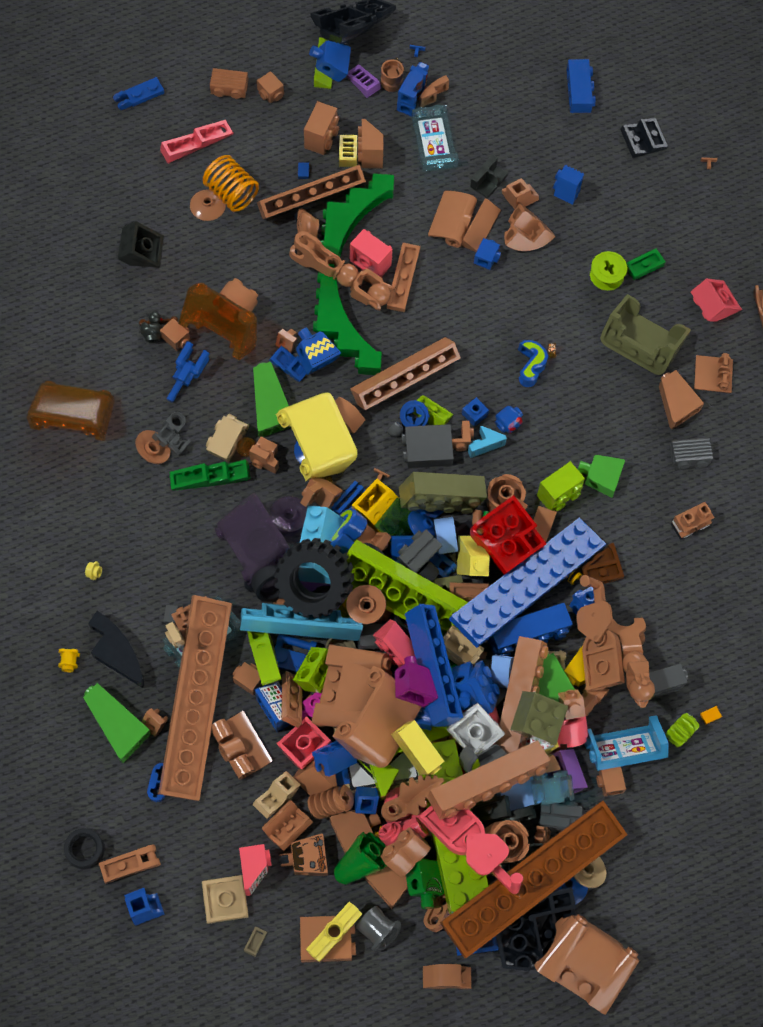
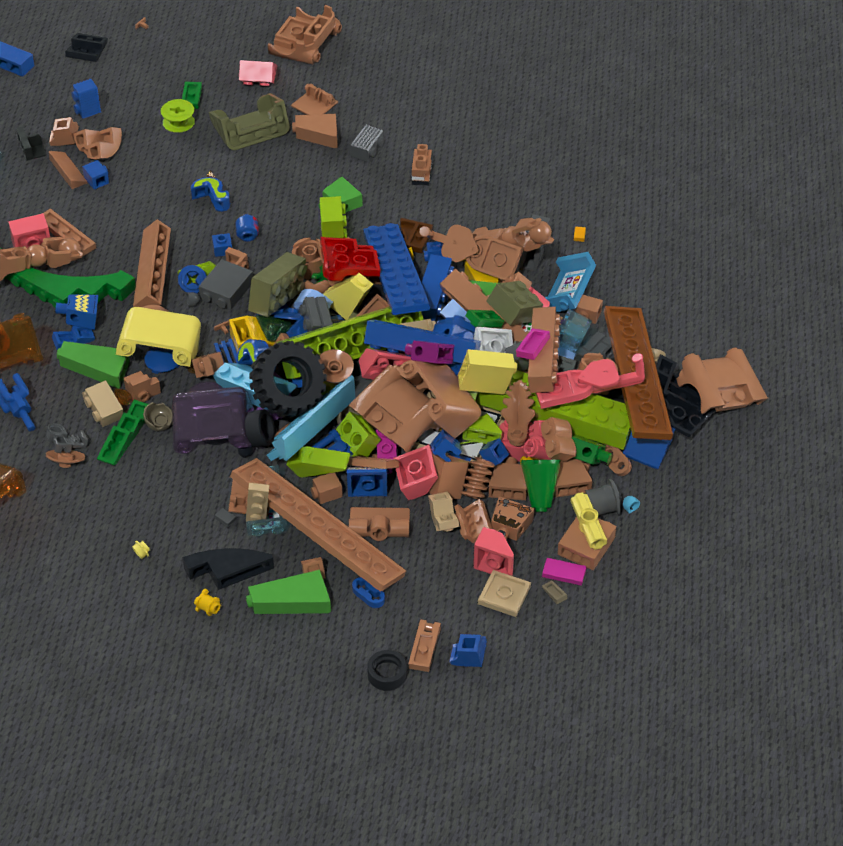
camera: 55 degrees left, 20 degrees down
(236, 485) = (158, 414): none -> dark tan hair
(282, 937) = (564, 571): none -> dark pink tile
(287, 339) = (50, 325): nougat tile -> none
(395, 952) = (631, 501): none -> medium azure hinge
(446, 976) = (671, 477): nougat brick -> none
(453, 217) = (44, 179): nougat panel -> none
(478, 769) = (533, 344): none -> dark pink tile
(490, 441) = (253, 248): medium azure slope -> none
(497, 703) = (484, 318): none -> green plate
(682, 730) = (580, 244): lime gear -> none

